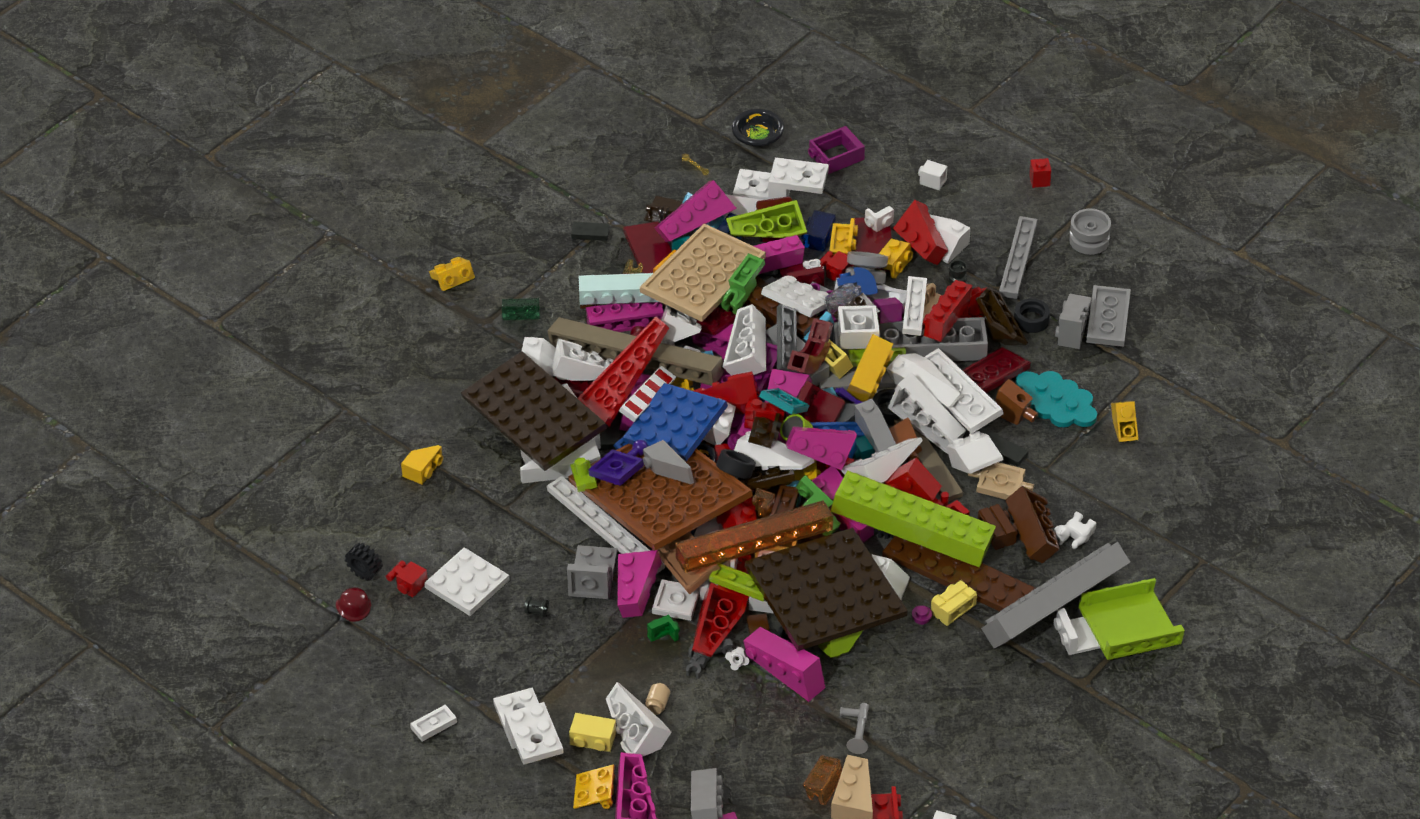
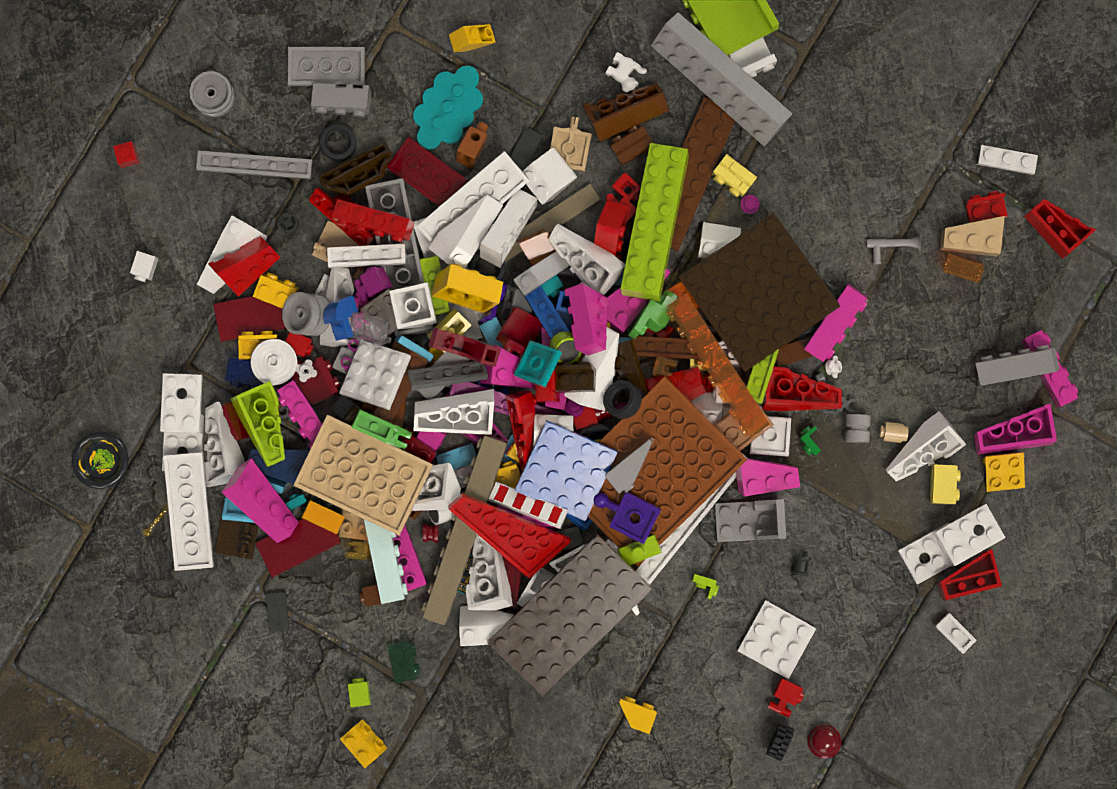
camera: 100 degrees left, 40 degrees up
(489, 740) = (972, 577): none -> red wedge
(499, 273) = (359, 692): none -> lime brick
(538, 531) = (702, 582): none -> lime bracket
(667, 666) = (857, 428): none -> light grey wheel
(692, 177) = (188, 511): none -> white plate
(825, 242) = (274, 361): none -> white shield
(842, 136) = (106, 359): magenta window -> none
(880, 219) = (227, 307): white bracket -> none

